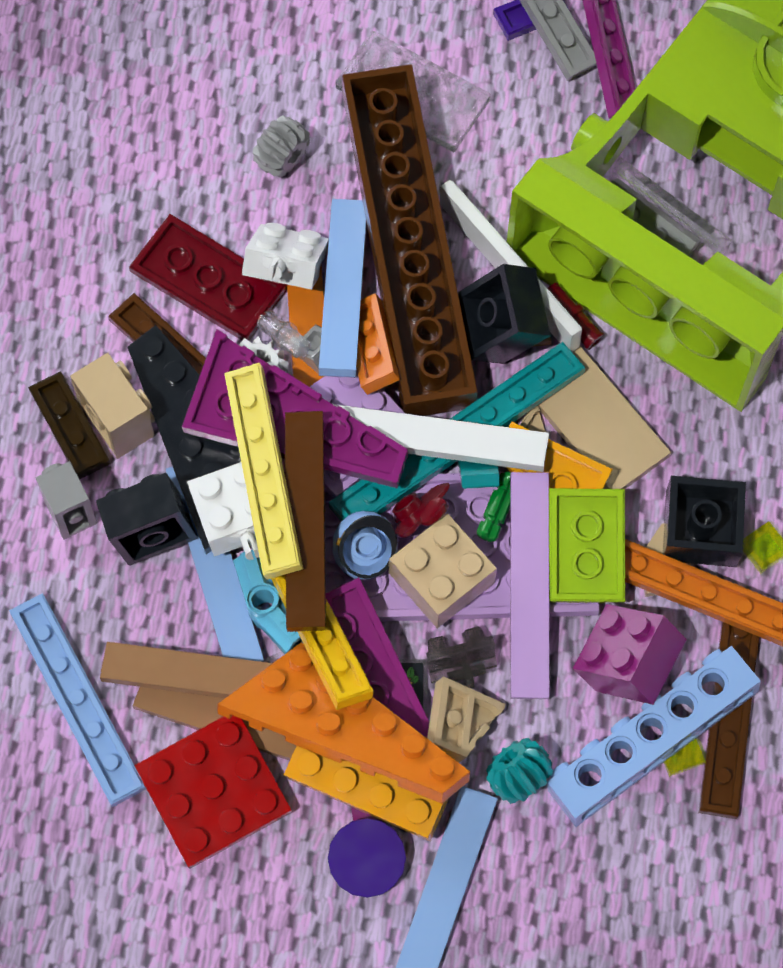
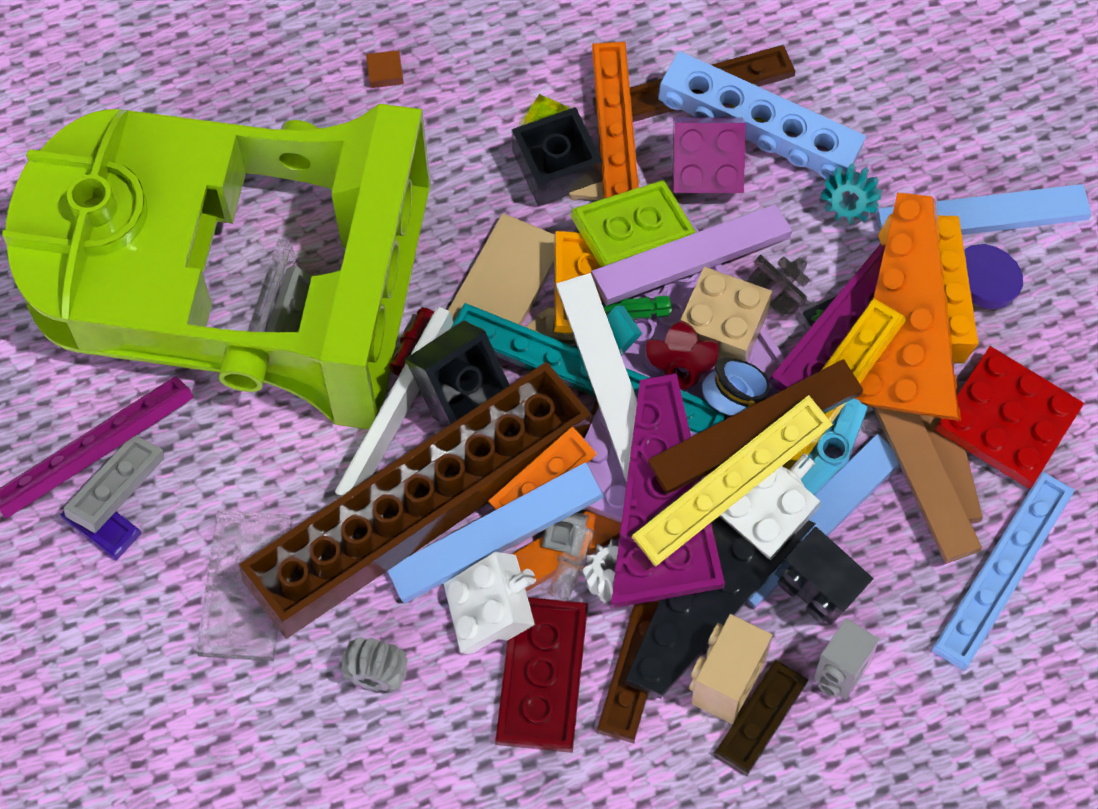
camera: 115 degrees left, 5 degrees down
(460, 717) = (841, 253): tan wing -> none

